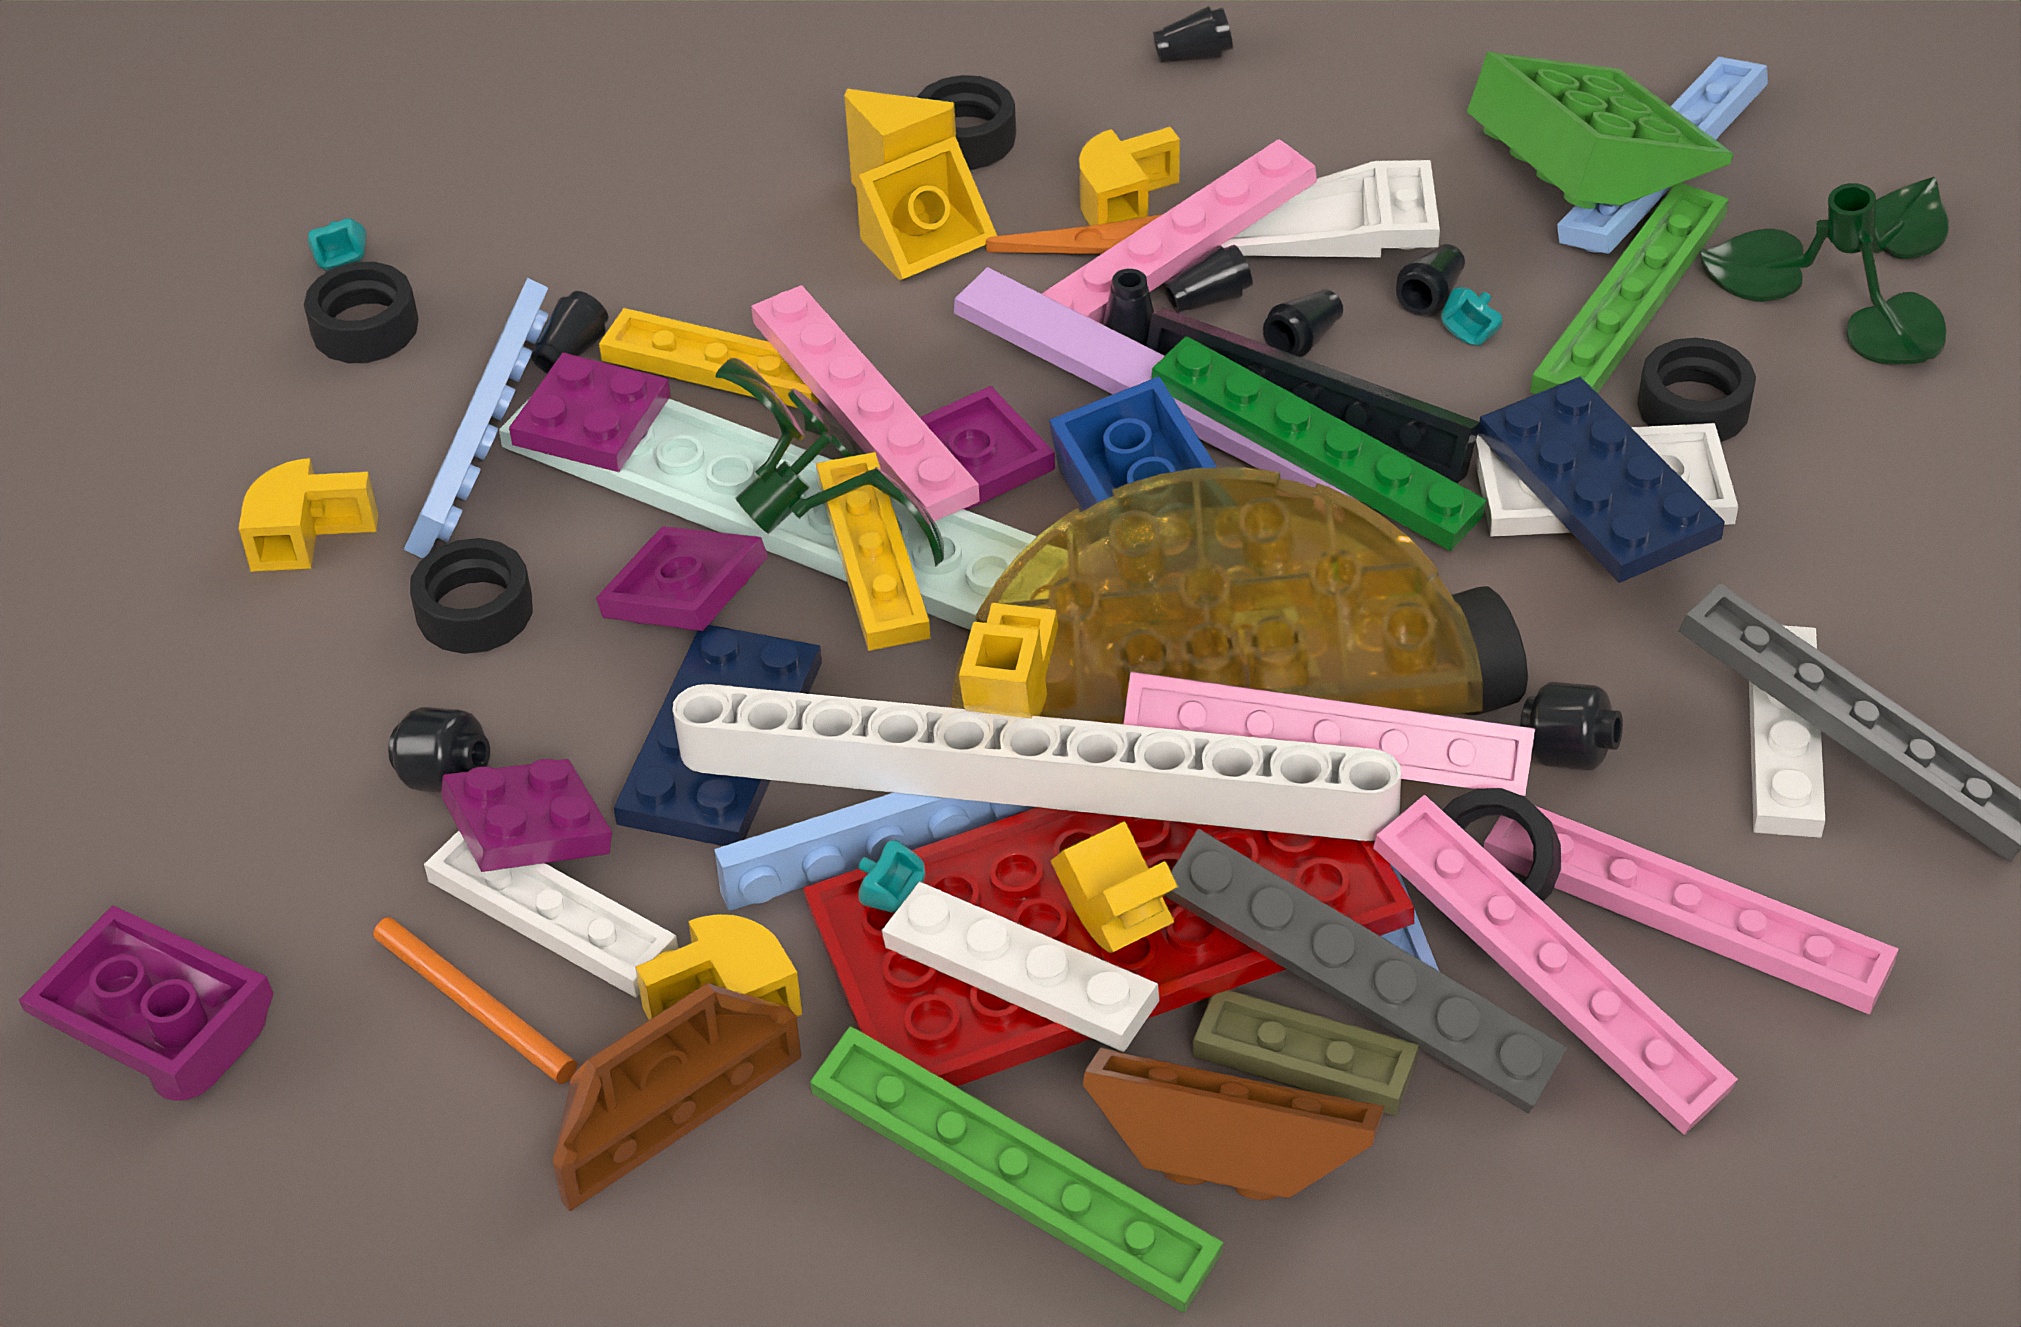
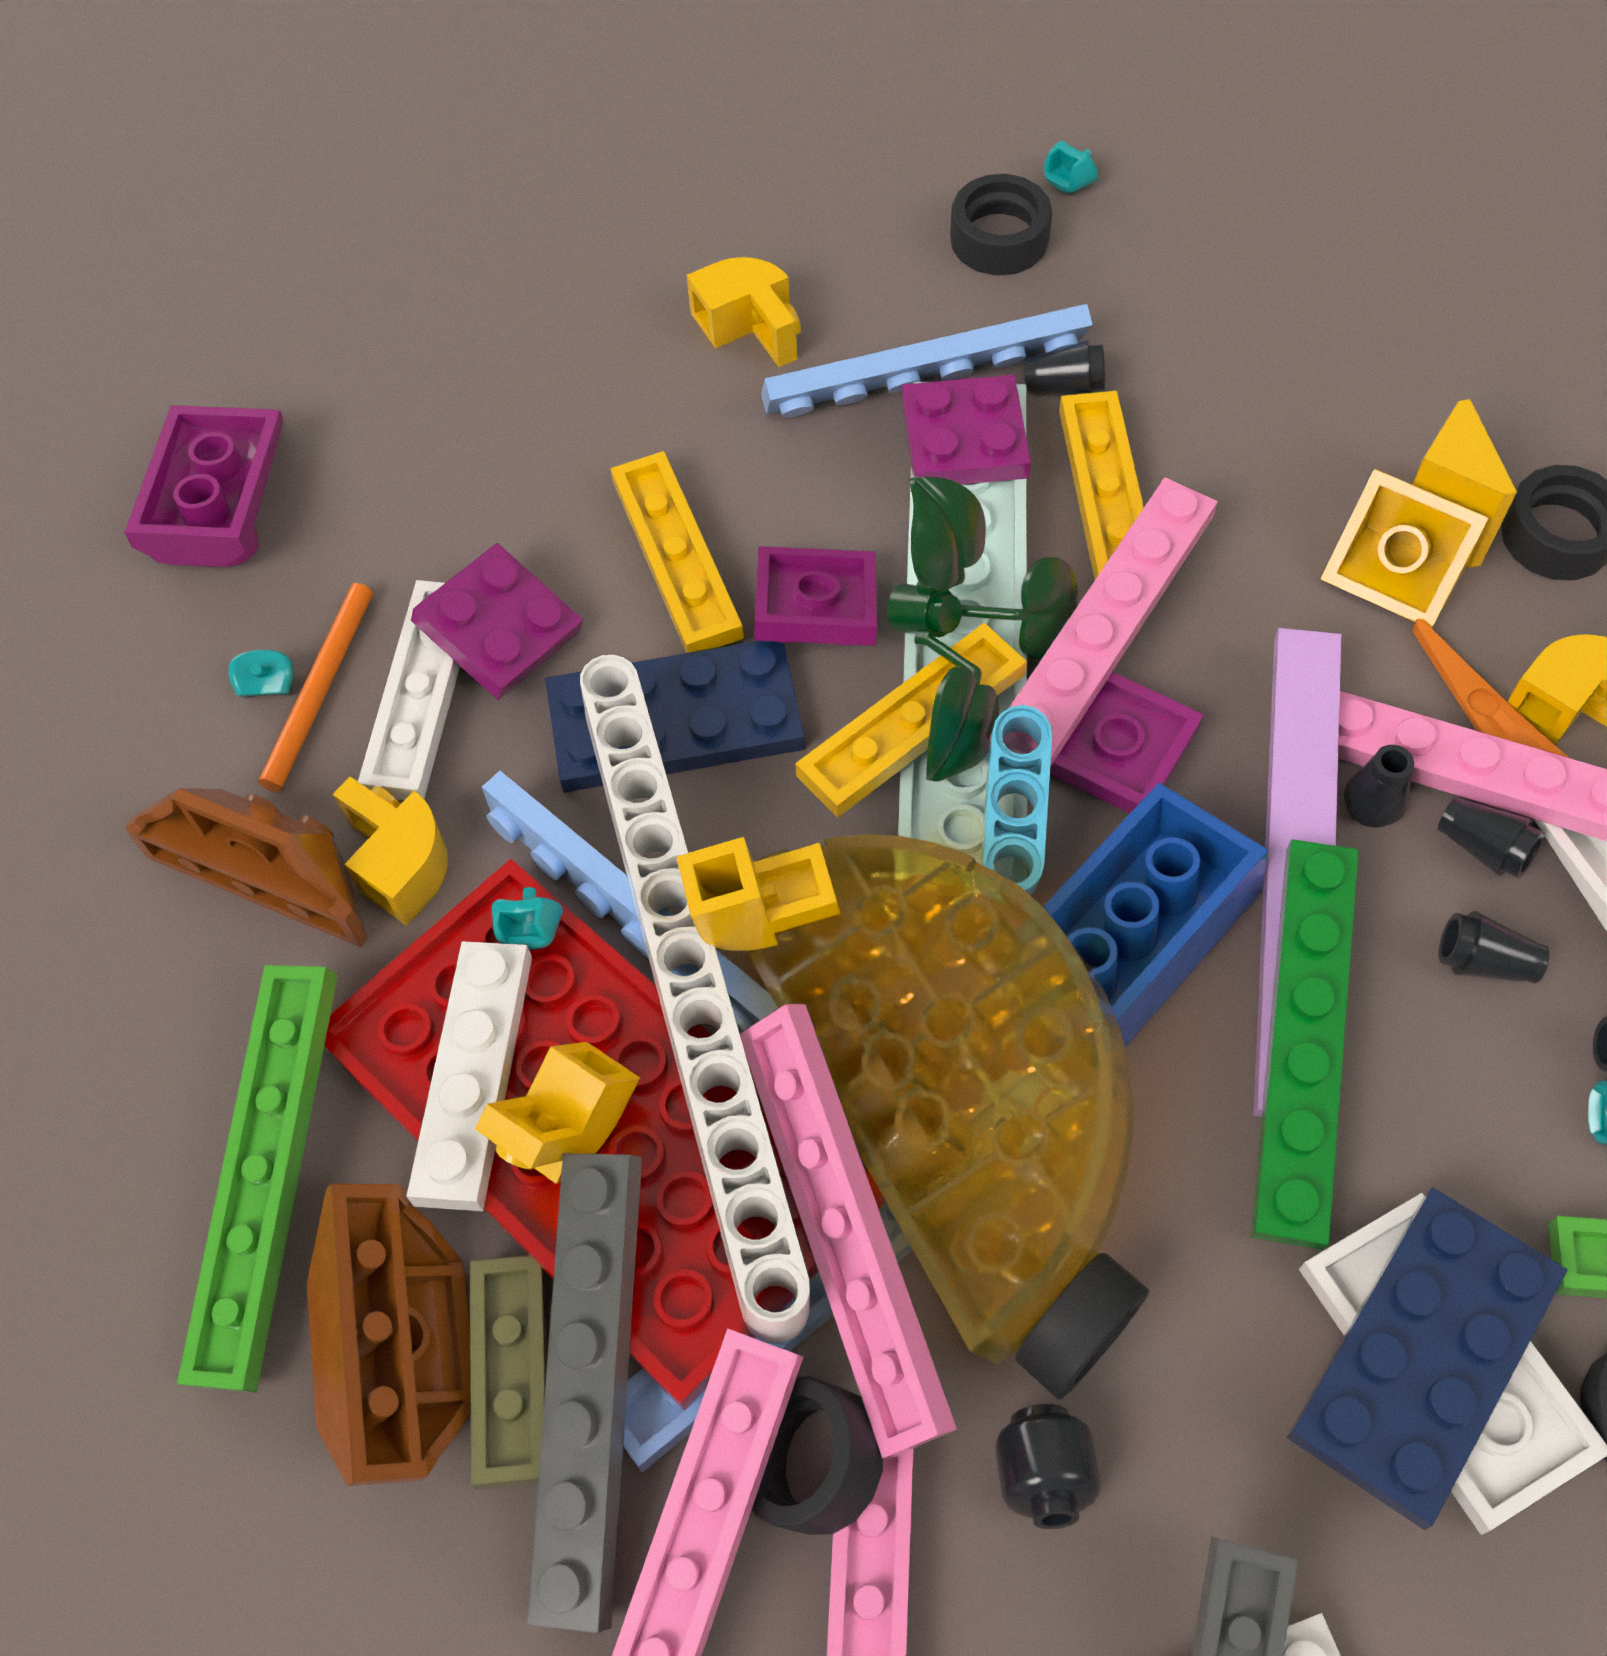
camera: 65 degrees right, 15 degrees up
(430, 1034) = (261, 673): none -> teal piece
(436, 744) = (543, 523): black head -> none
(466, 563) = (718, 430): black tyre -> none
(545, 665) = (677, 554): none -> yellow plate
(997, 492) = (1022, 775): none -> medium azure beam
(1410, 426) = (1382, 1018): black plate -> none

